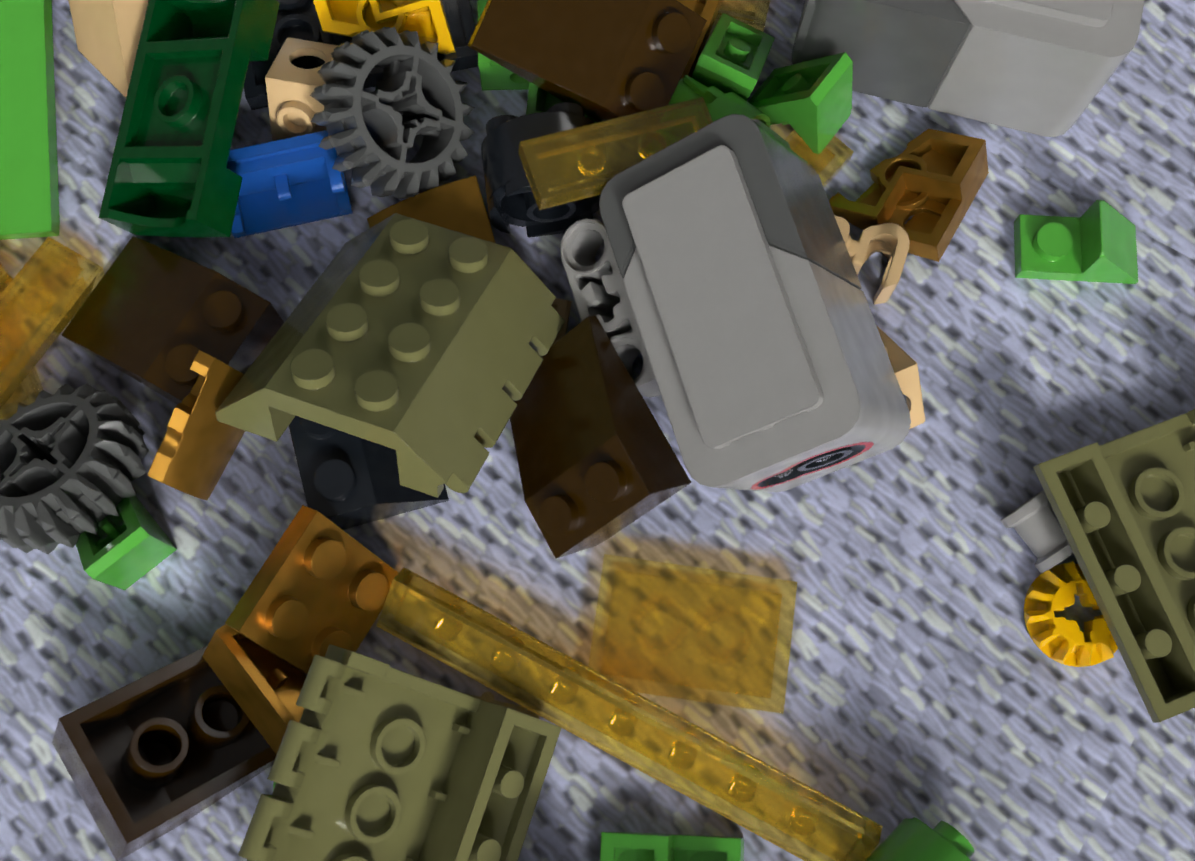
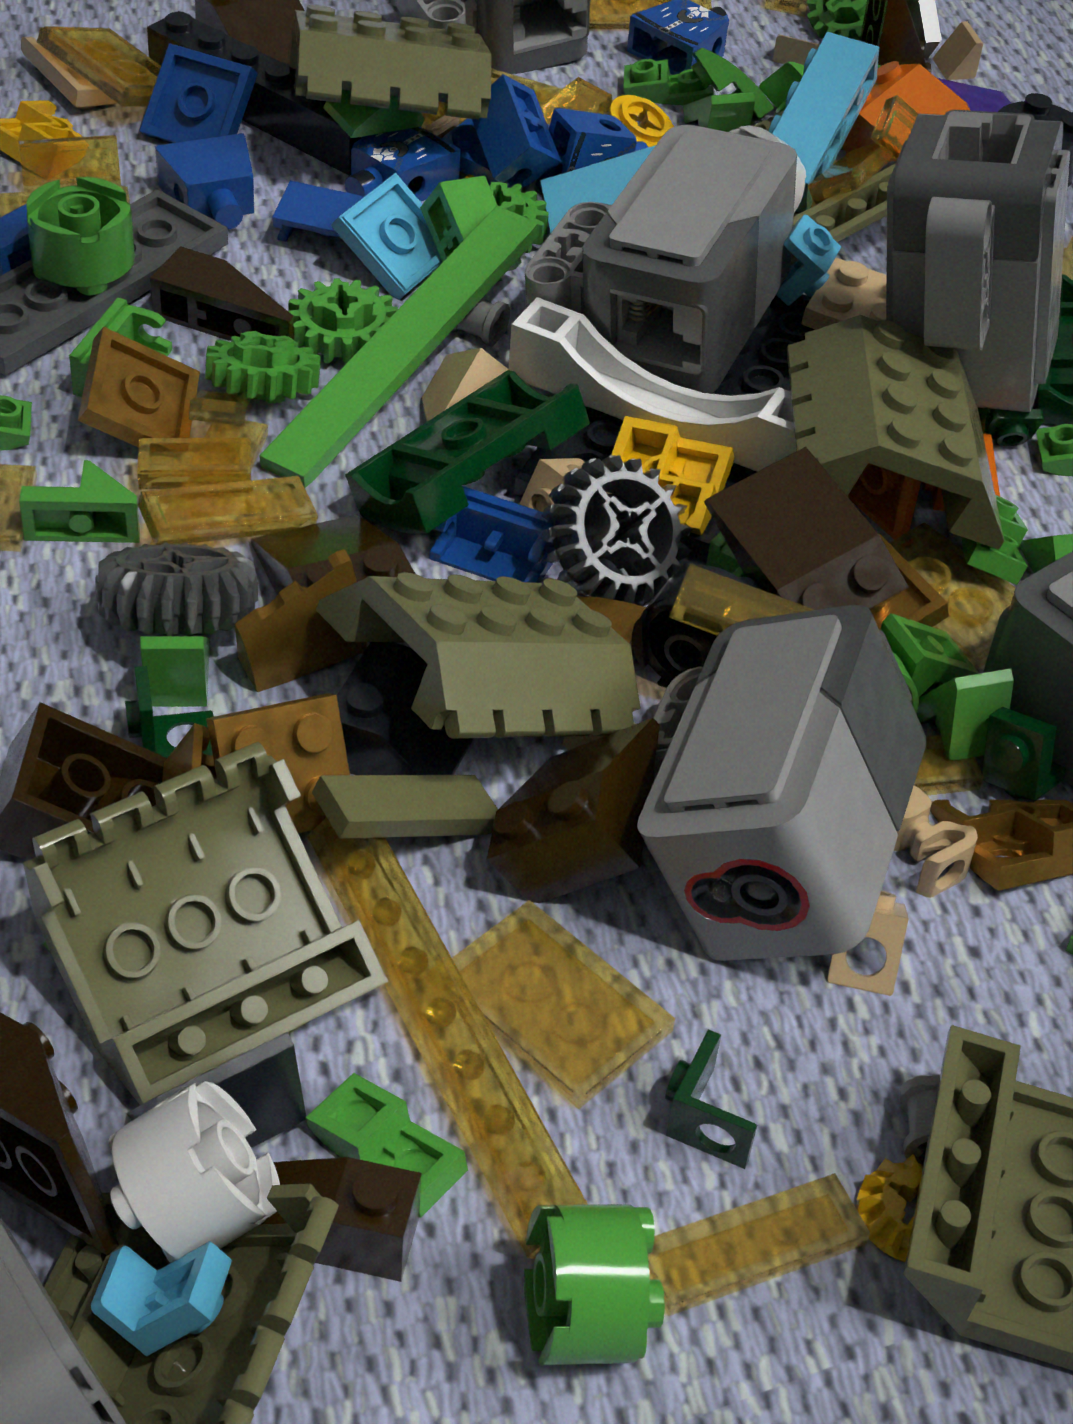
camera: 35 degrees right, 30 degrees down
(150, 619) = (152, 728): none -> dark green bracket
(444, 557) = (405, 805): none -> olive tile
(857, 645) = (689, 1112): none -> dark green bracket
(879, 117) = (1020, 755): none -> dark green bracket
(991, 738) = (755, 1243): none -> clear yellow tile

